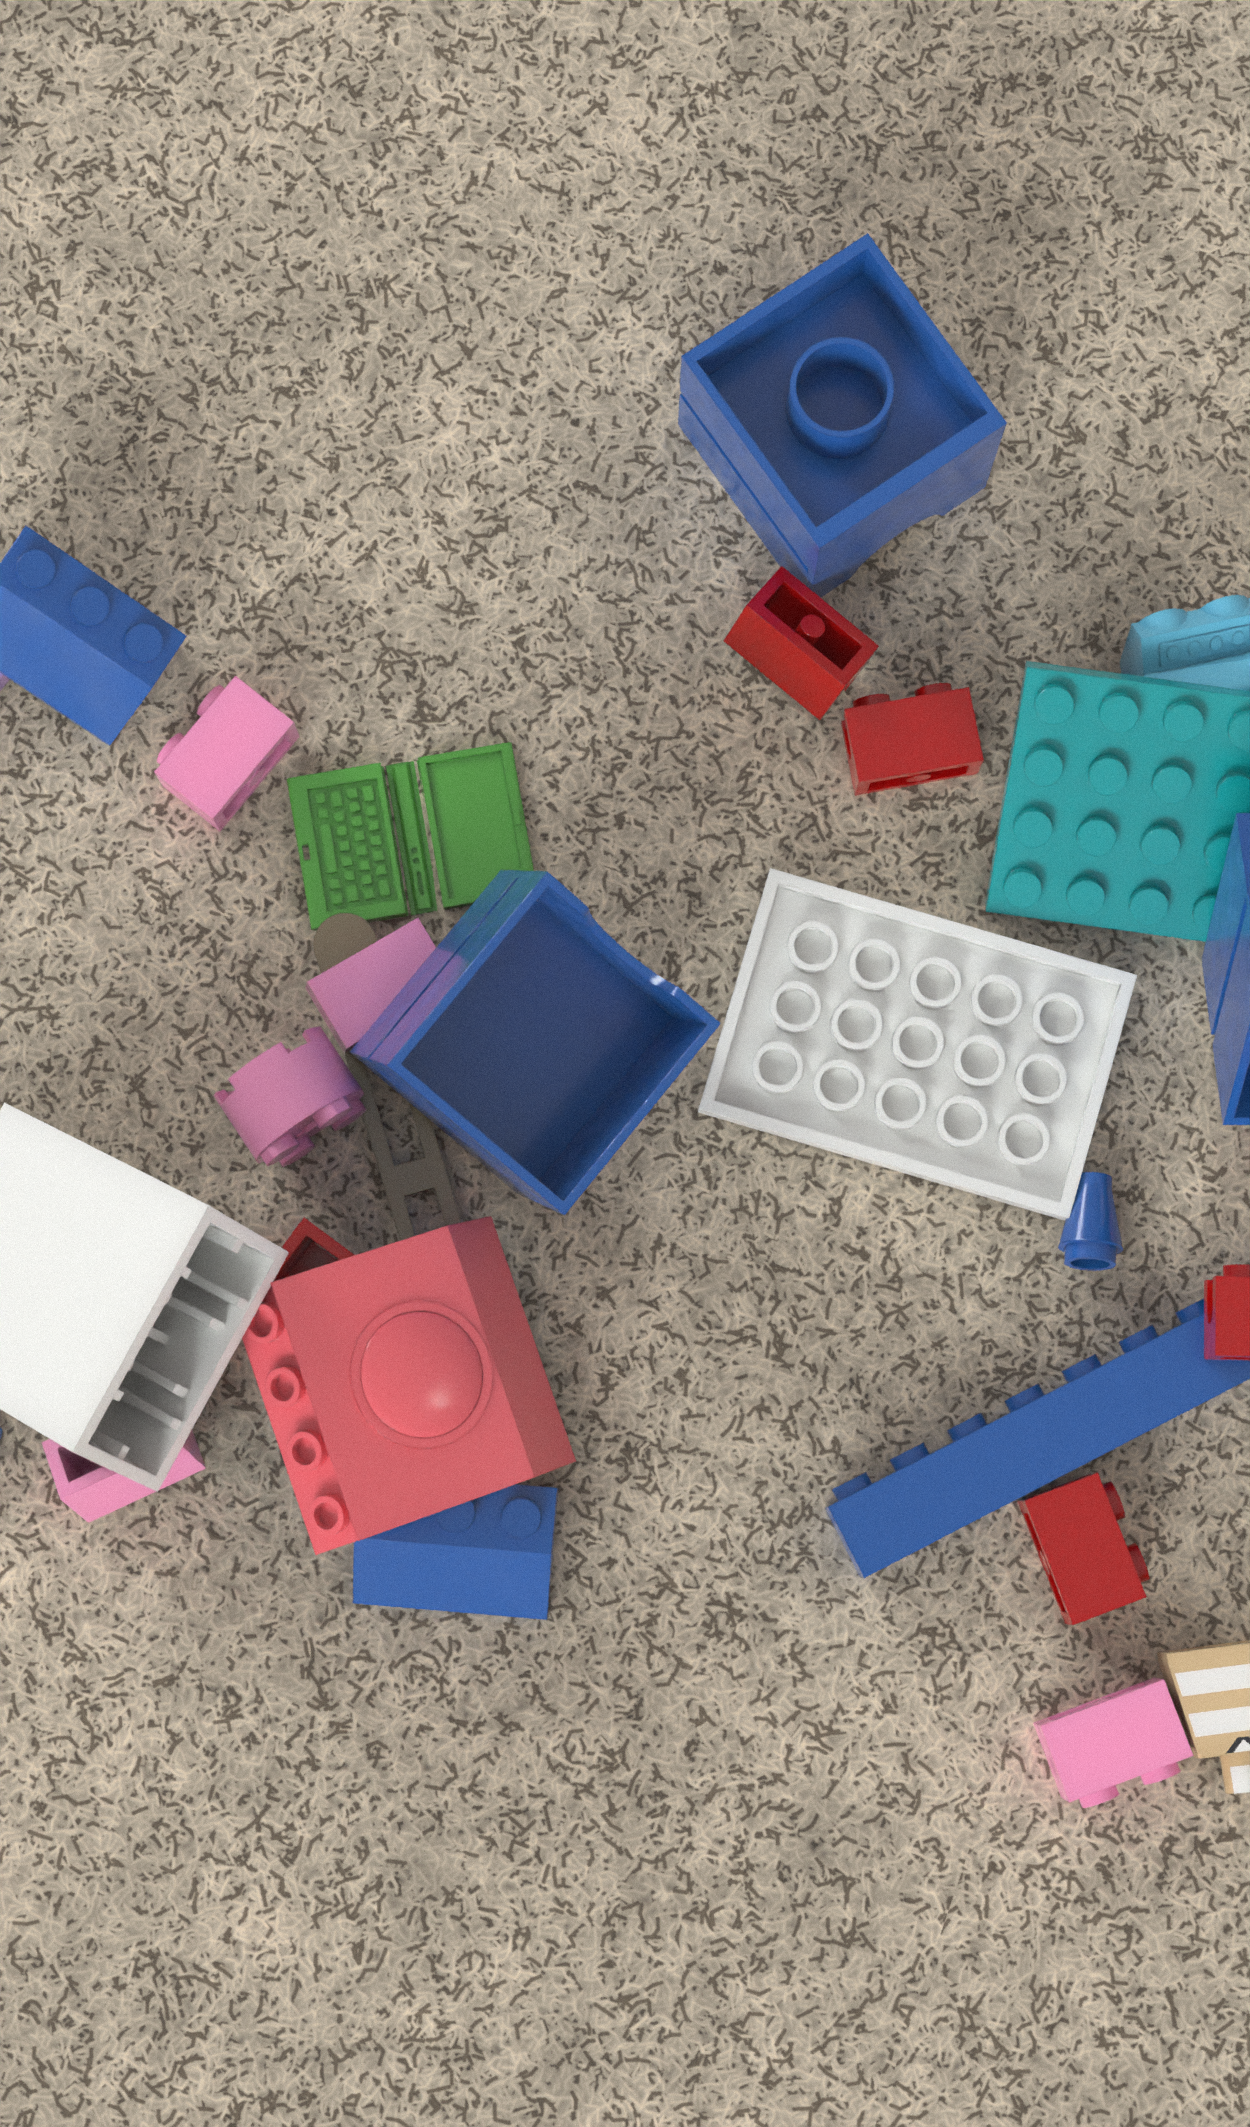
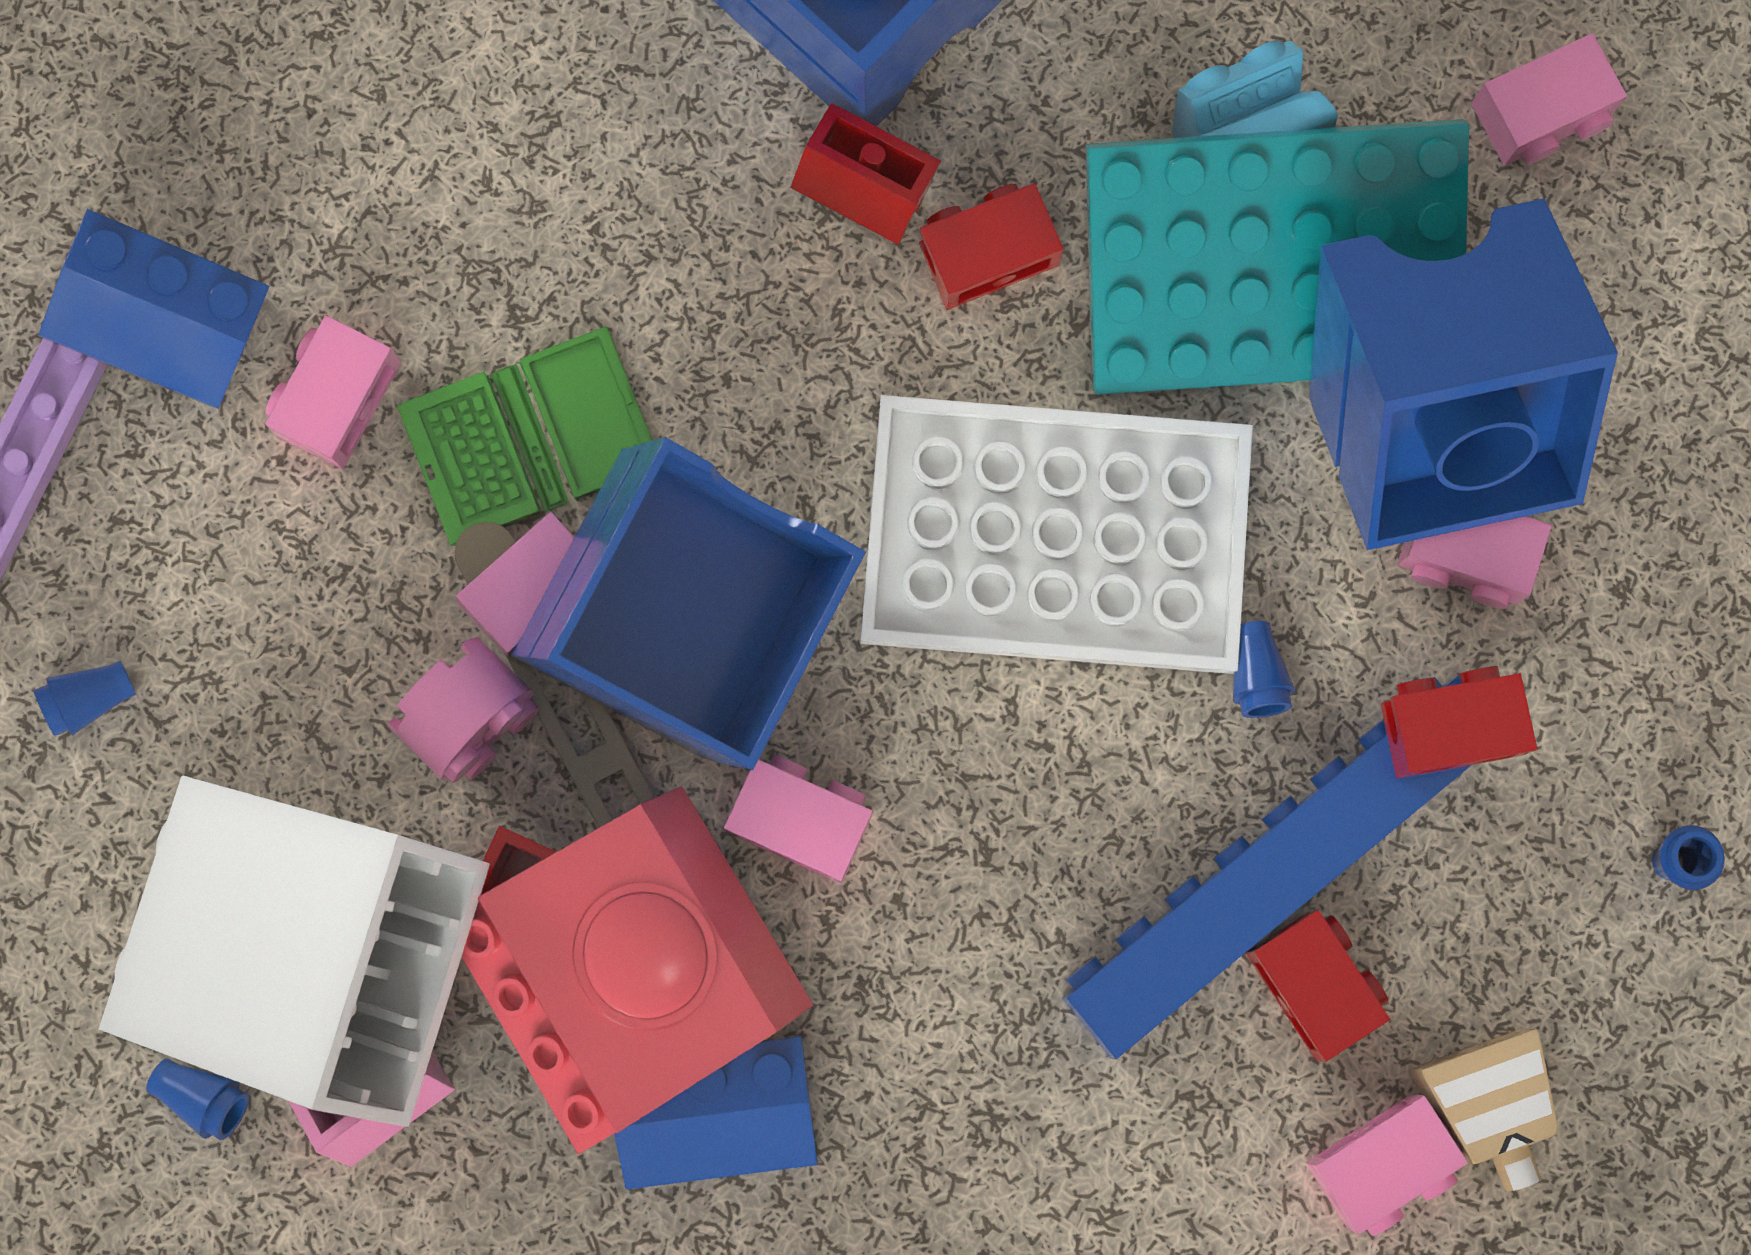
camera: 15 degrees left, 0 degrees up
(601, 1273) = (799, 818): none -> bright pink brick

